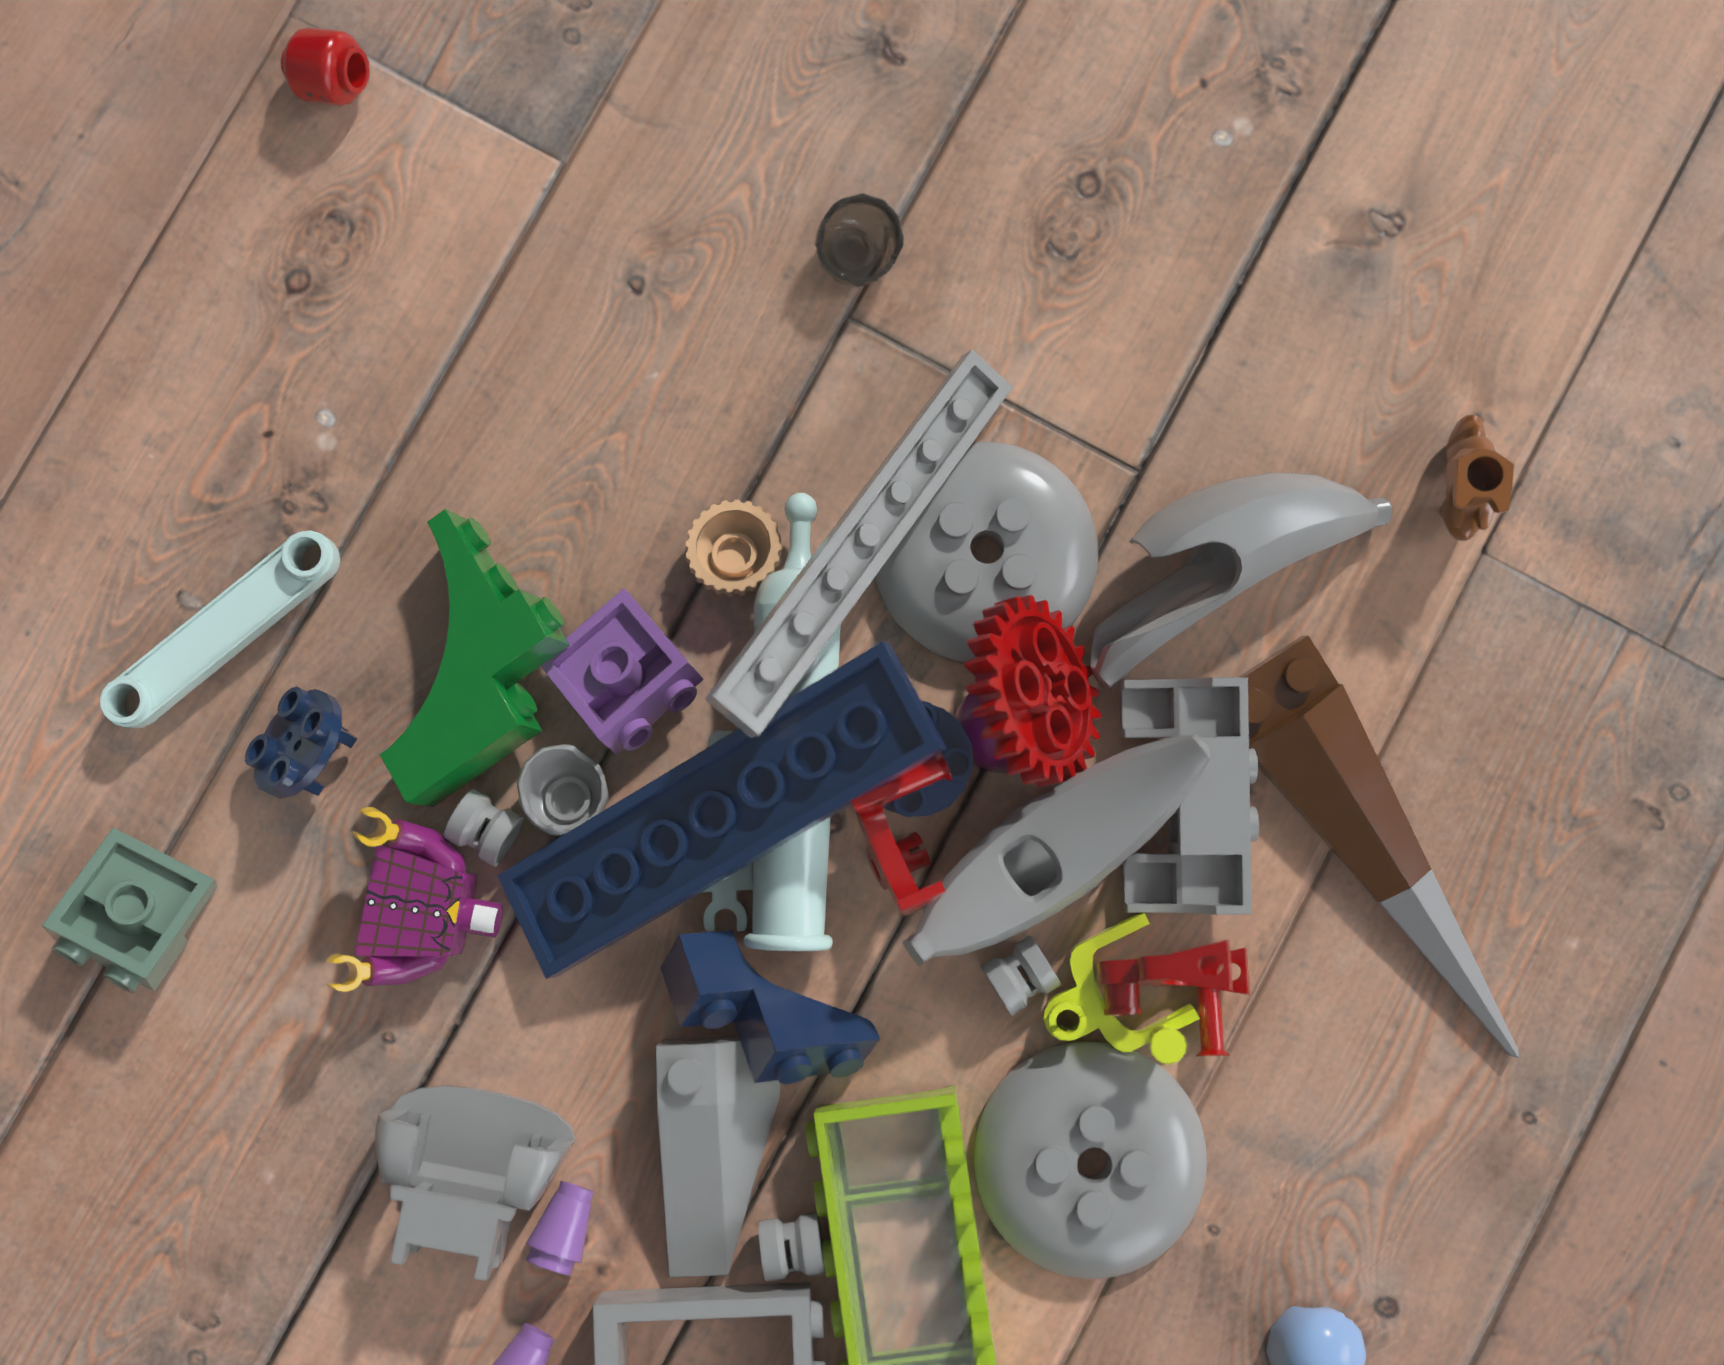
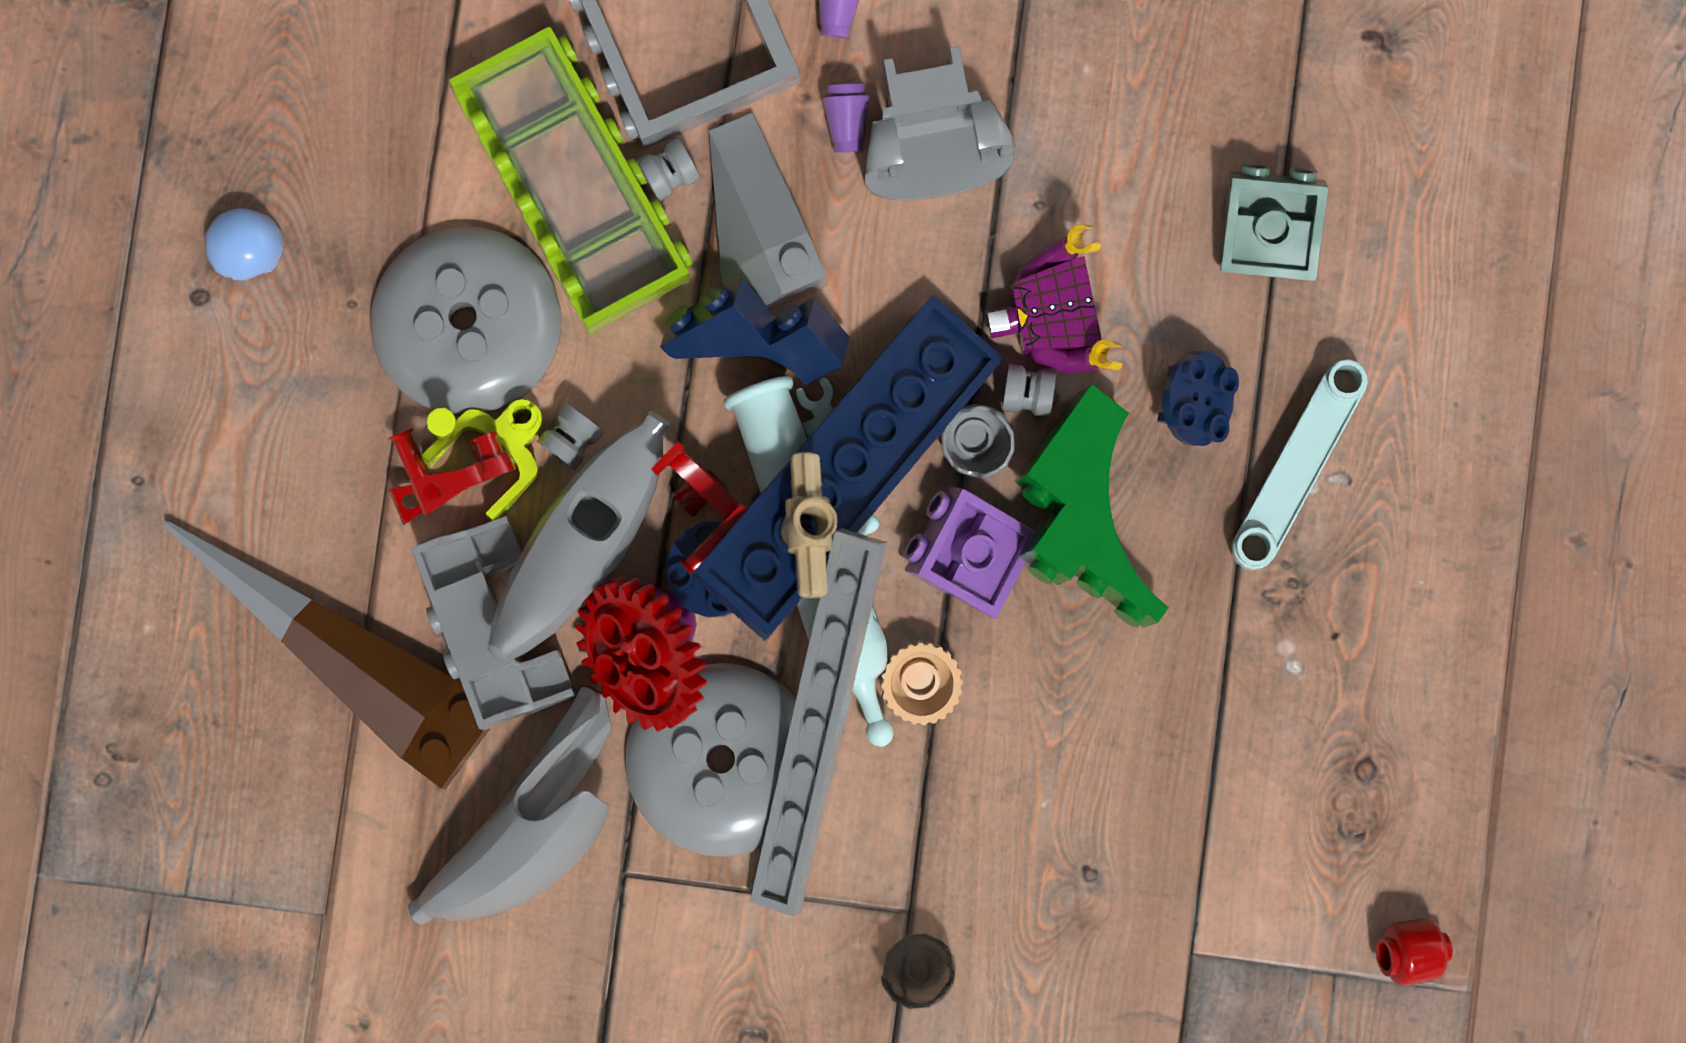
camera: 155 degrees right, 0 degrees up
(775, 782) = (808, 548): none -> tan axle
(1476, 480) = (355, 961): dark orange animal -> none

